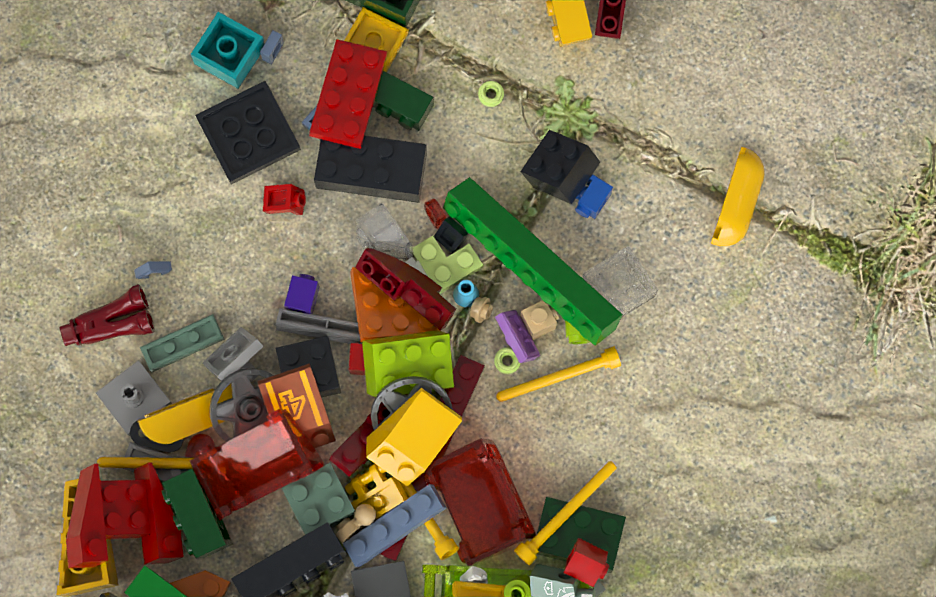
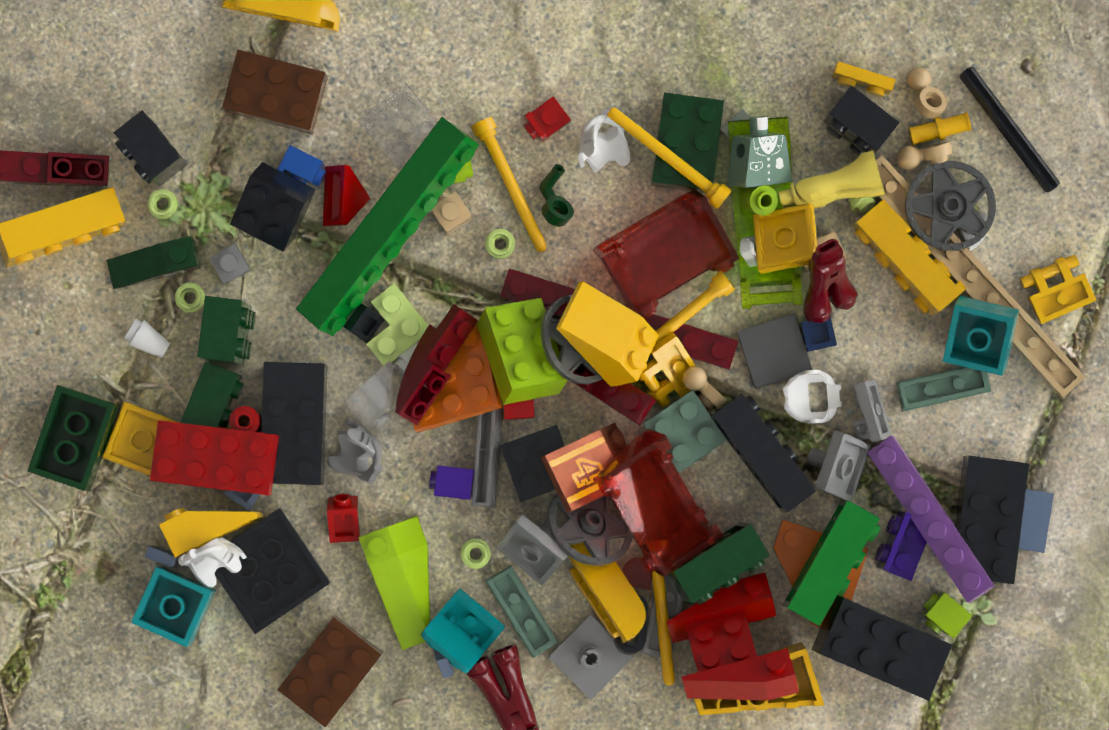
camera: 100 degrees left, 10 degrees up
(154, 173) = (330, 671): none -> reddish brown brick
(170, 286) = (462, 631): none -> teal bracket
(232, 242) = (400, 571): none -> lime wedge
(232, 303) = (475, 563): none -> yellowish green plate
(263, 81) = (210, 557): none -> white helmet
(290, 70) = (194, 529): none -> yellow slope
(336, 217) = (355, 449): none -> light grey helmet
(379, 118) = (253, 414): none -> red brick
(394, 525) = (703, 344): sand blue plate -> none
(434, 213) = (339, 344): clear red tile -> none
(455, 113) = (226, 331): none -> dark green brick
(460, 53) = (146, 338): none -> white cone
(465, 299) = (433, 306): medium azure cone -> none
(481, 309) = (445, 279): tan plate -> none
(516, 130) = (230, 263): none -> light grey plate
(517, 336) = (472, 234): medium lavender plate -> none
(524, 68) = (154, 262): none -> dark green slope
(532, 412) = (556, 209): none -> dark green plate
(564, 230) = (342, 195): none -> red slope
(574, 72) = (153, 202): none -> yellowish green plate
(584, 458) = (602, 147): none -> white helmet
(586, 562) = (722, 128): red brick -> none
(613, 413) = (546, 120): none -> red bracket
(621, 70) = (150, 148): none -> black brick
(661, 181) = (275, 92): none -> reddish brown brick

